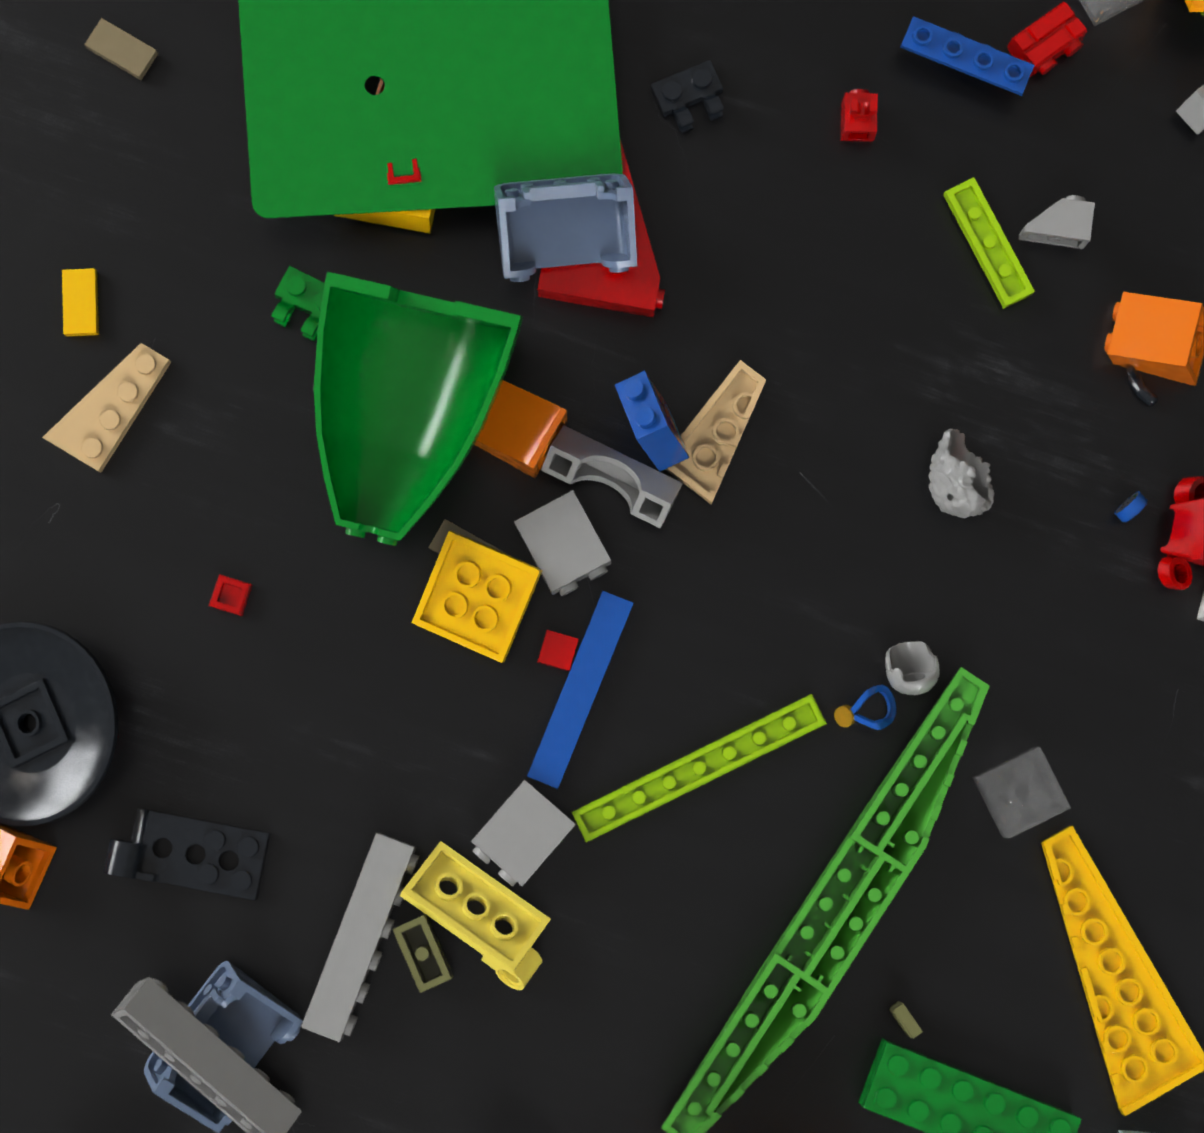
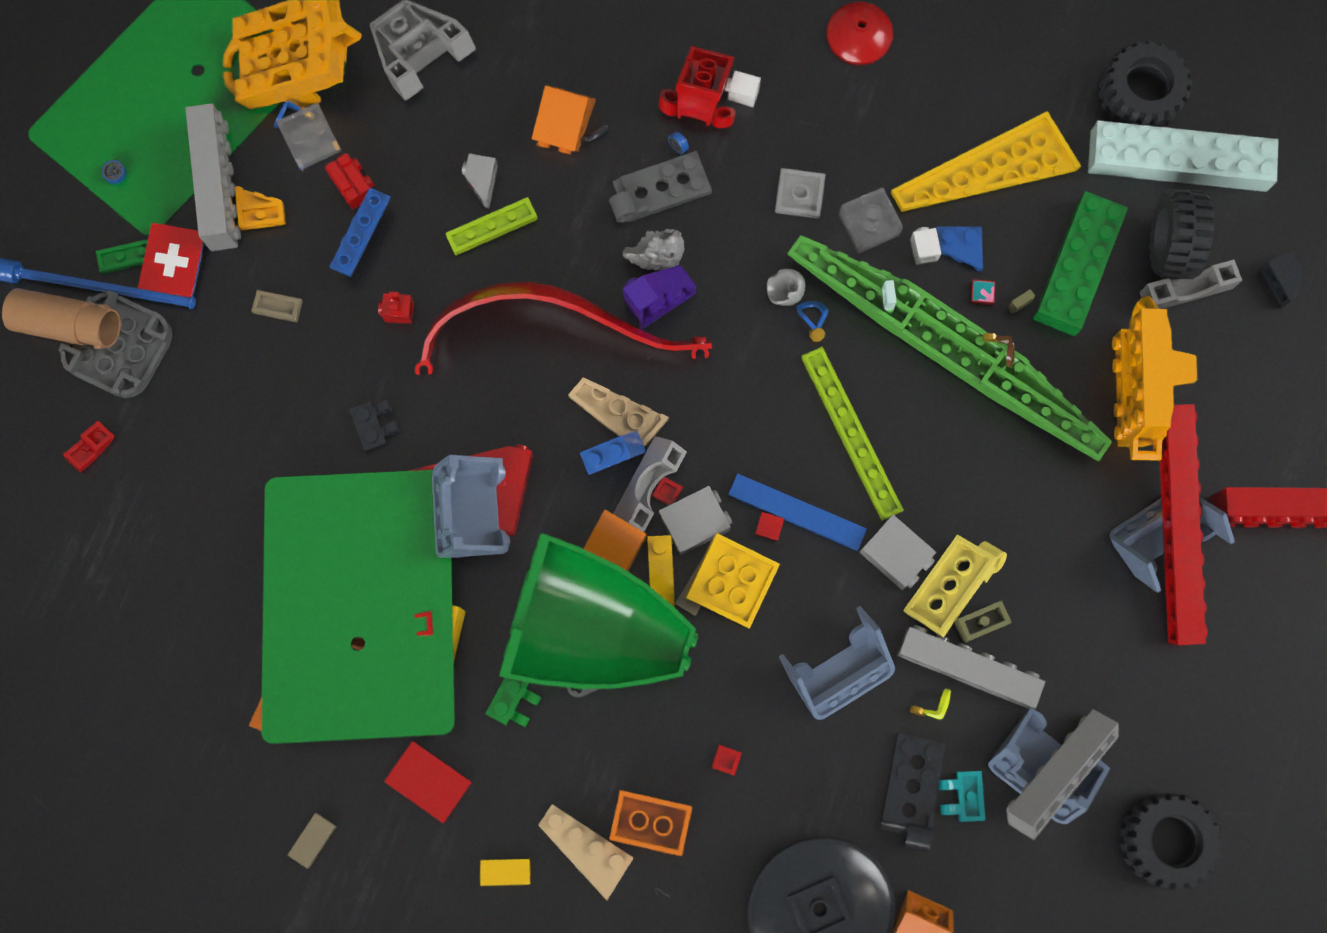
camera: 85 degrees left, 5 degrees down
(141, 491) = (650, 823): none -> orange brick
(183, 933) = (969, 796): none -> teal plate
(198, 195) = (428, 782): none -> red tile
(321, 902) = (941, 709): none -> neon yellow piece
(346, 753) = (845, 674): none -> sand blue windscreen
(489, 498) = (661, 566): none -> yellow slope
(605, 505) = (667, 491): none -> red tile
(803, 993) = (988, 337): none -> reddish brown piece
(873, 342) = (557, 296): none -> red panel
(891, 479) = (656, 294): none -> dark purple brick
(899, 814) = (889, 295): none -> light aqua tile
(919, 963) = (982, 292): none -> tile
(987, 876) = (925, 245): none -> white brick
(993, 931) = (962, 244): none -> blue wing
(1027, 438) = (630, 208): none -> dark grey hinge
(1062, 690) = (800, 193): none -> light grey tile

